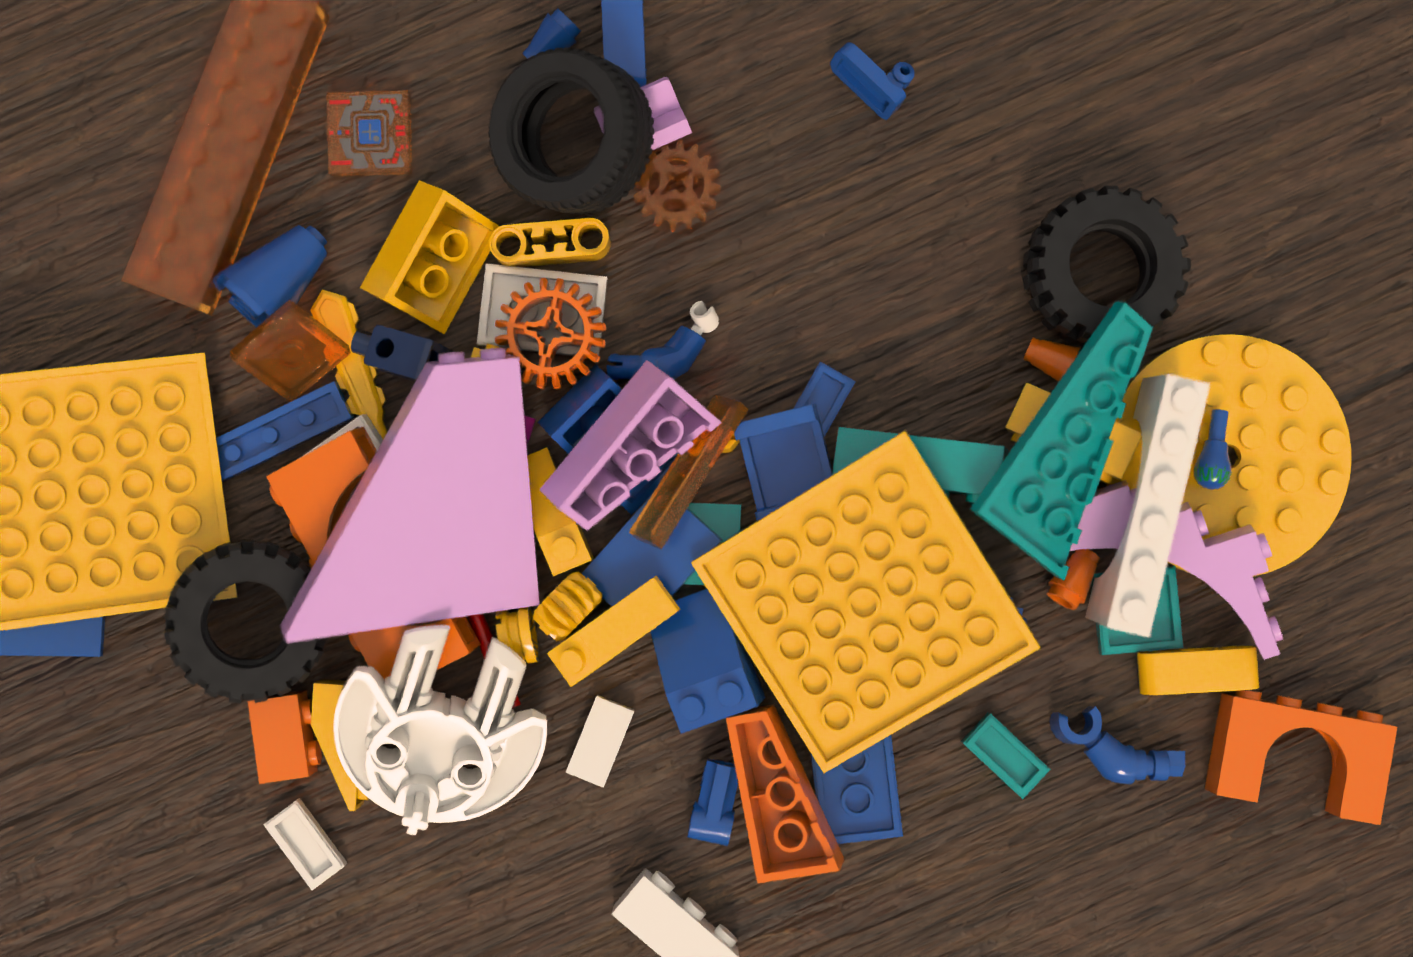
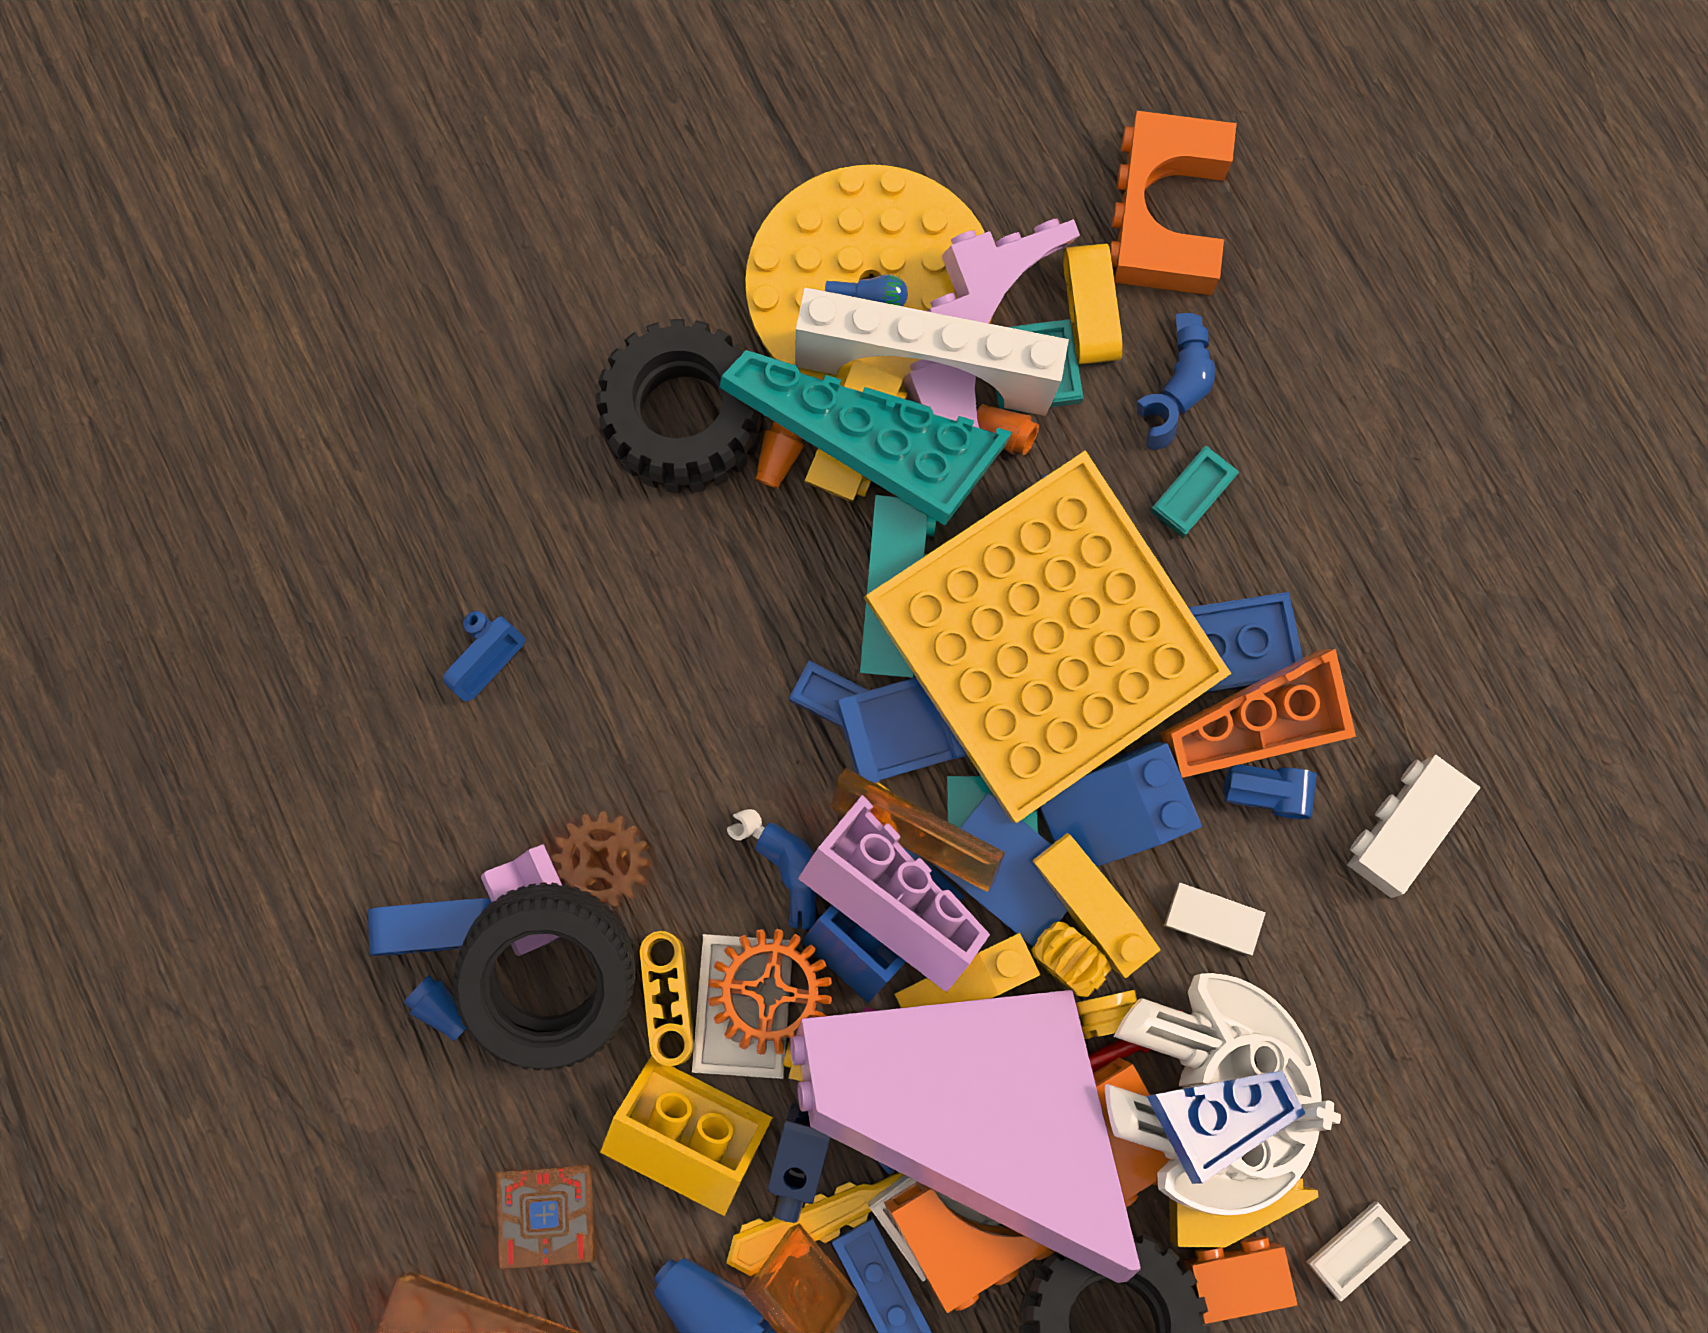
camera: 90 degrees left, 10 degrees down
(414, 730) = (1224, 1119): none -> wing

